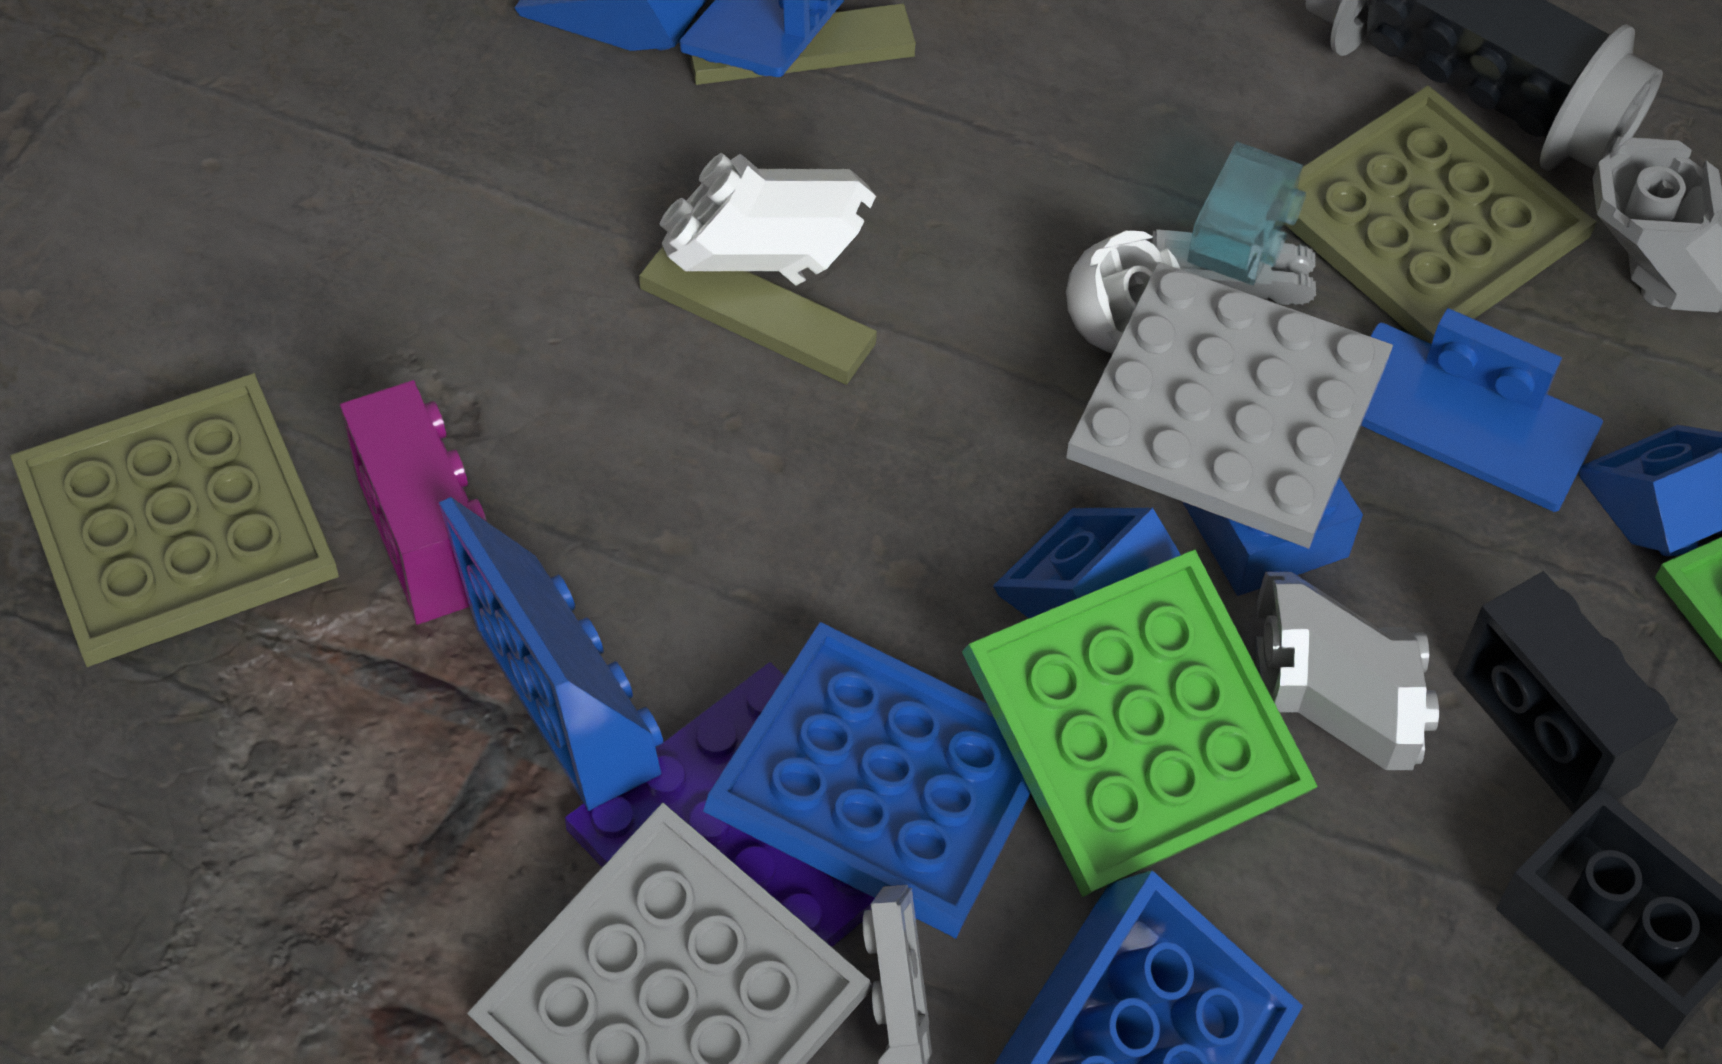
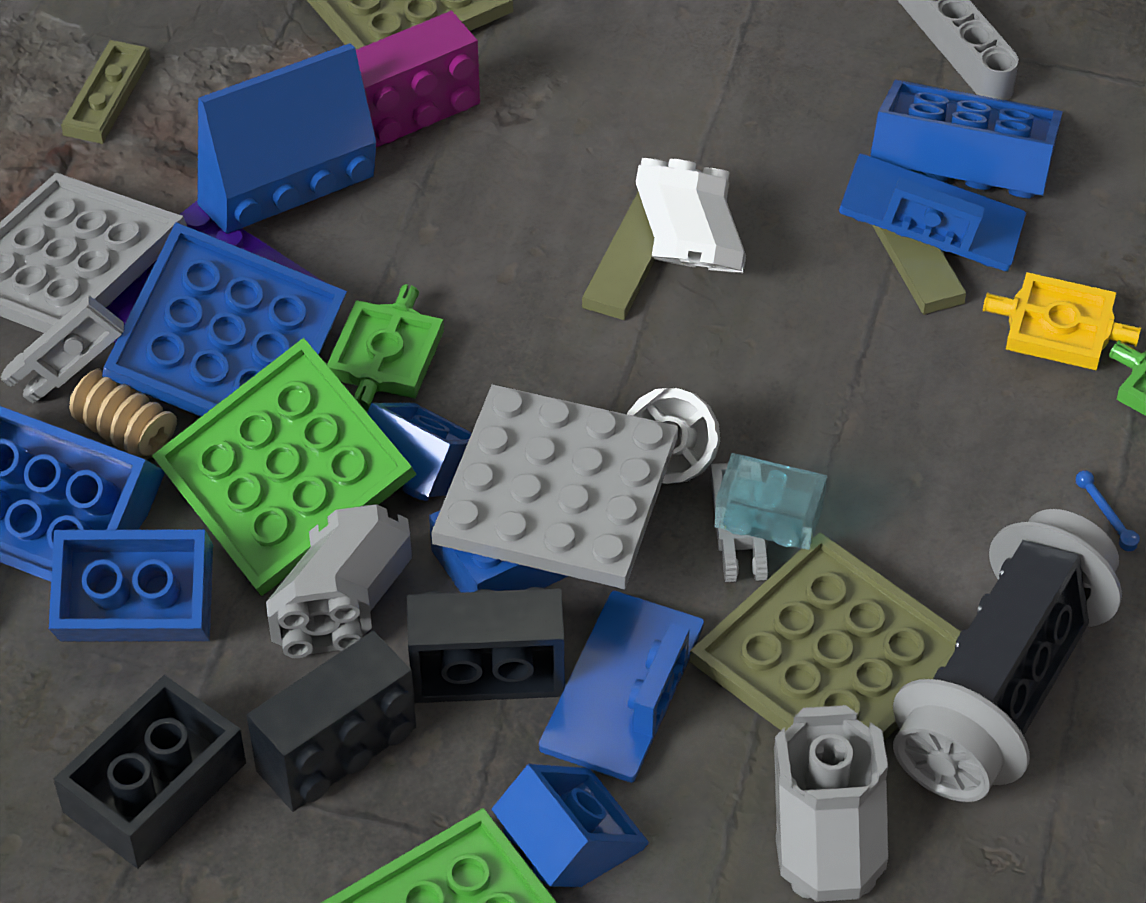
camera: 85 degrees right, 5 degrees down
(272, 944) = (106, 91): none -> olive tile
(904, 598) = (386, 347): none -> bright green plate
(1003, 924) = (121, 415): none -> tan piece
(1341, 920) = (131, 585): none -> blue brick
(1445, 520) = (486, 645): none -> black brick

